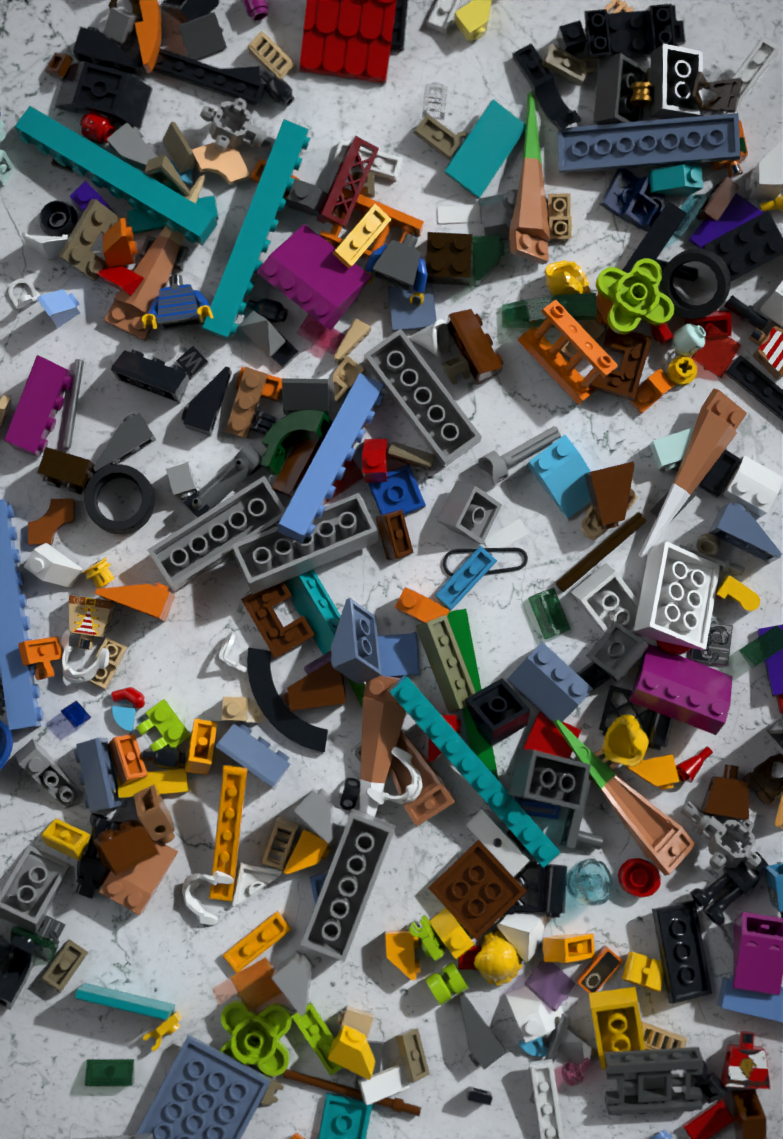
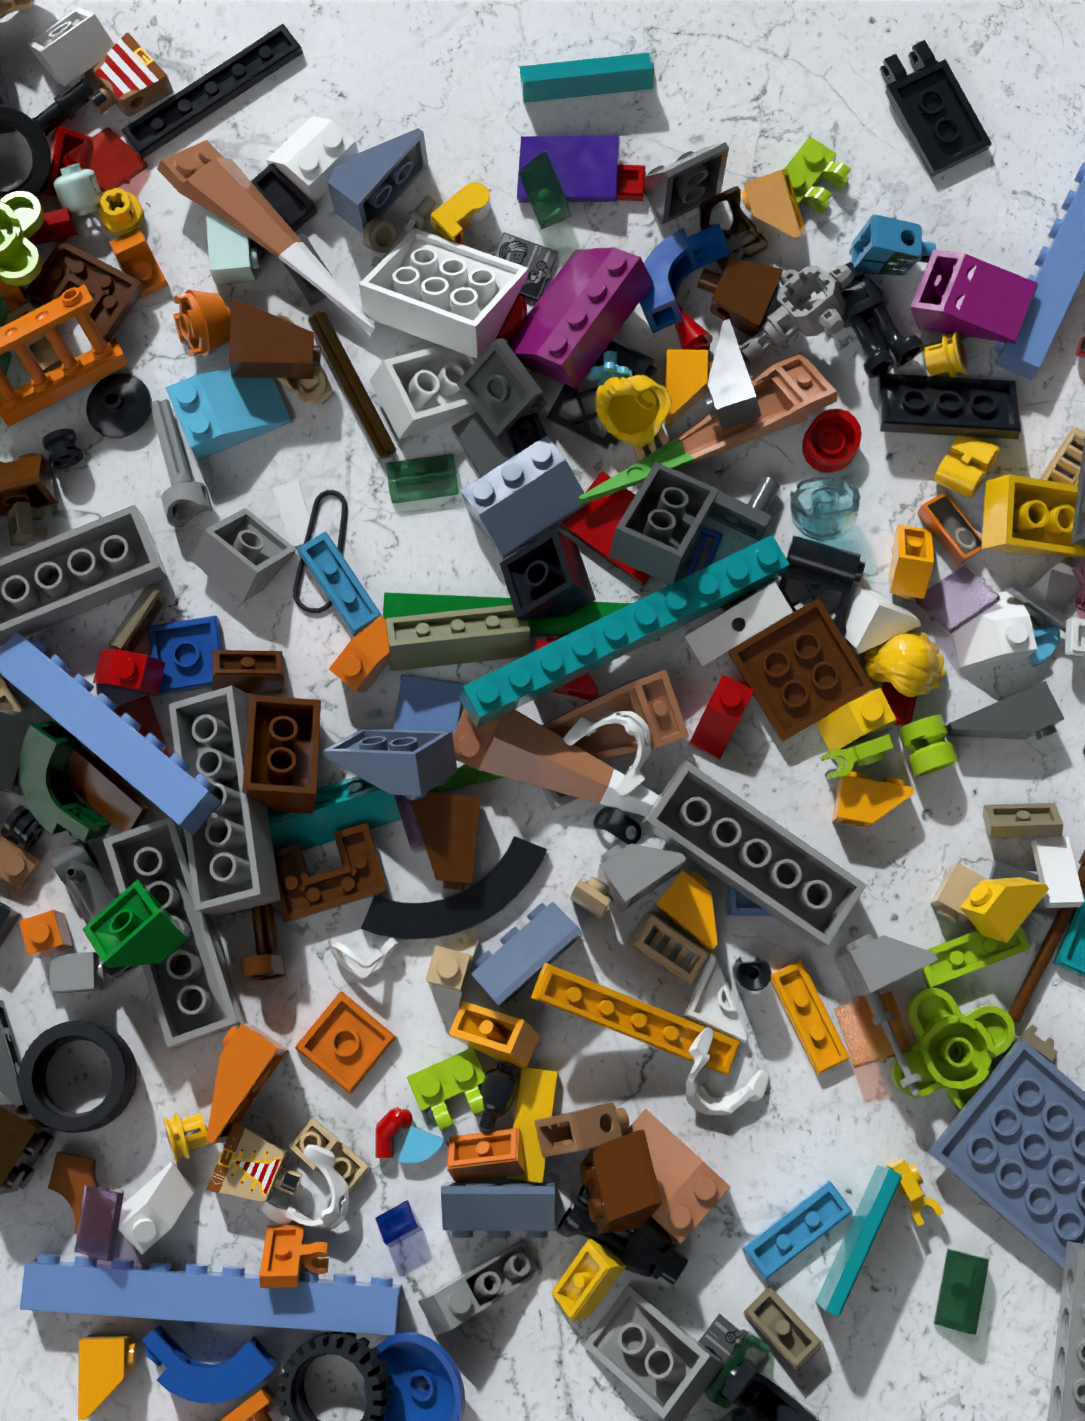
camera: 70 degrees left, 5 degrees down
(36, 536) = (99, 1223): none -> clear purple piece
(125, 962) = (797, 1229): none -> dark azure tile
(177, 655) = (345, 1042): none -> orange tile
(200, 455) = (46, 934): none -> orange brick
(211, 511) = (134, 930): none -> green slope
(214, 595) = (267, 962): none -> reddish brown piece
(264, 989) = (883, 1018): none -> light grey piece
(272, 900) = (751, 974): none -> black piece
(299, 788) = (592, 896): none -> tan slope
(344, 572) = (282, 752): none -> reddish brown slope
(434, 844) = (721, 717): none -> red slope
(511, 378) = (62, 448): none -> black wheel
(547, 414) = (127, 414): none -> black dish
(576, 650) = (480, 444): none -> dark grey tile
(617, 445) = (202, 321): none -> orange cone
(648, 720) = (608, 369): none -> medium azure plant
(659, 801) = (729, 383): none -> slope
(716, 944) = (947, 356): none -> yellow piece
(733, 742) = (671, 264): none -> blue arch

